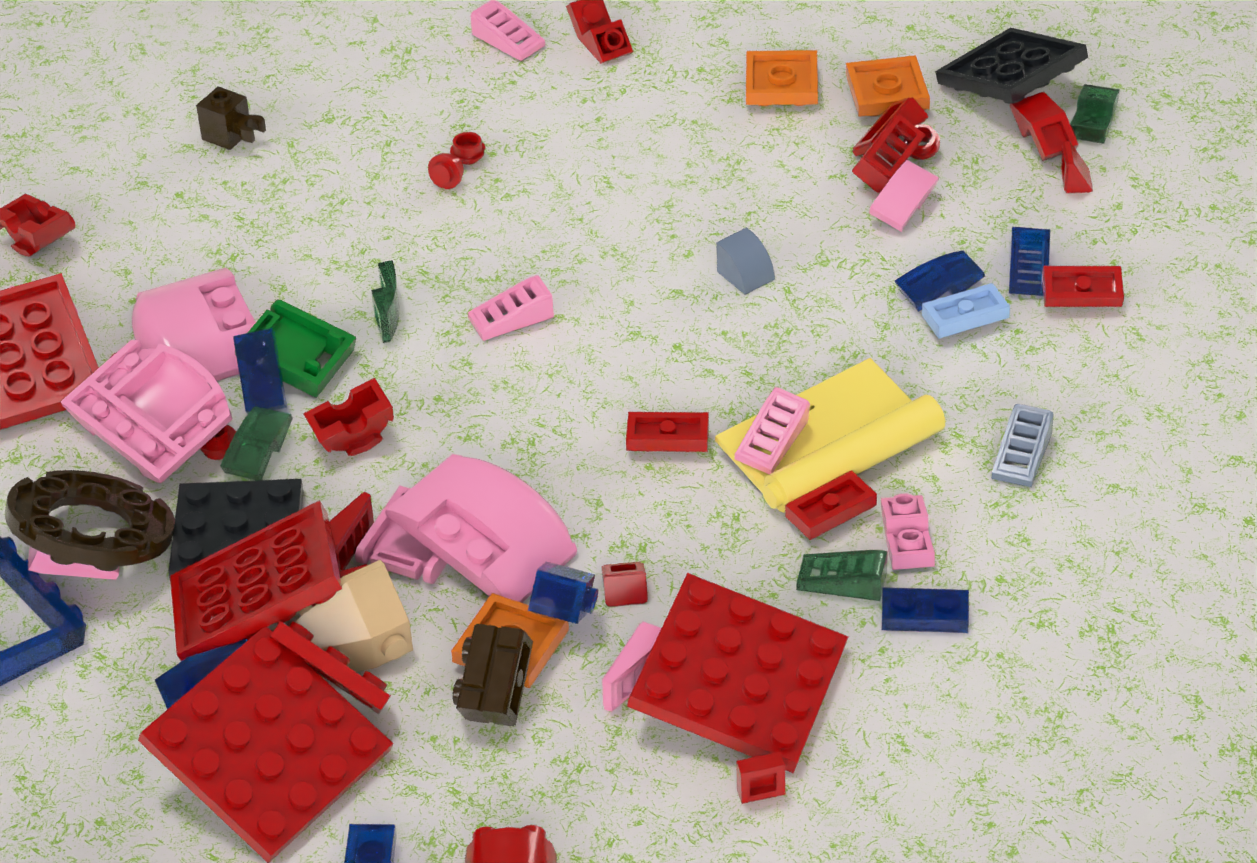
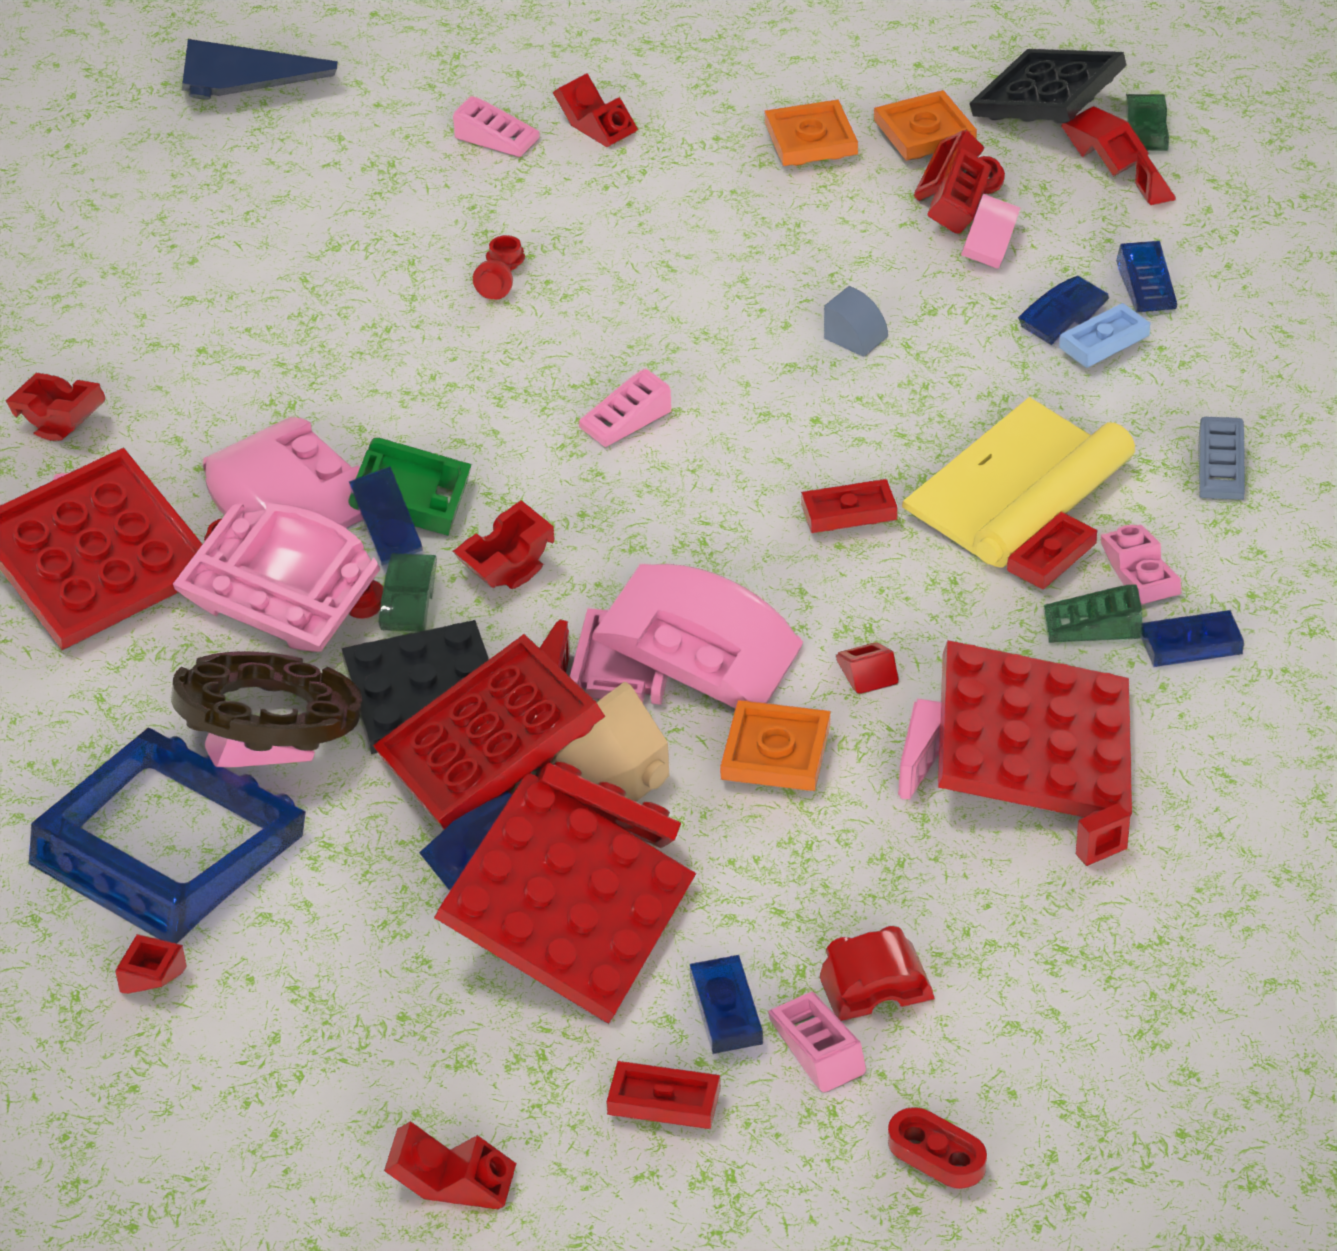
camera: 15 degrees left, 0 degrees up
(226, 119) = (227, 261): dark brown brick -> none
(386, 301) = (488, 421): clear green slope -> none
(493, 674) = (781, 781): dark brown brick -> none
(563, 593) = (820, 685): clear blue brick -> none
(784, 409) = (971, 461): bright pink slope -> none
(1082, 286) = (1213, 292): red plate -> none

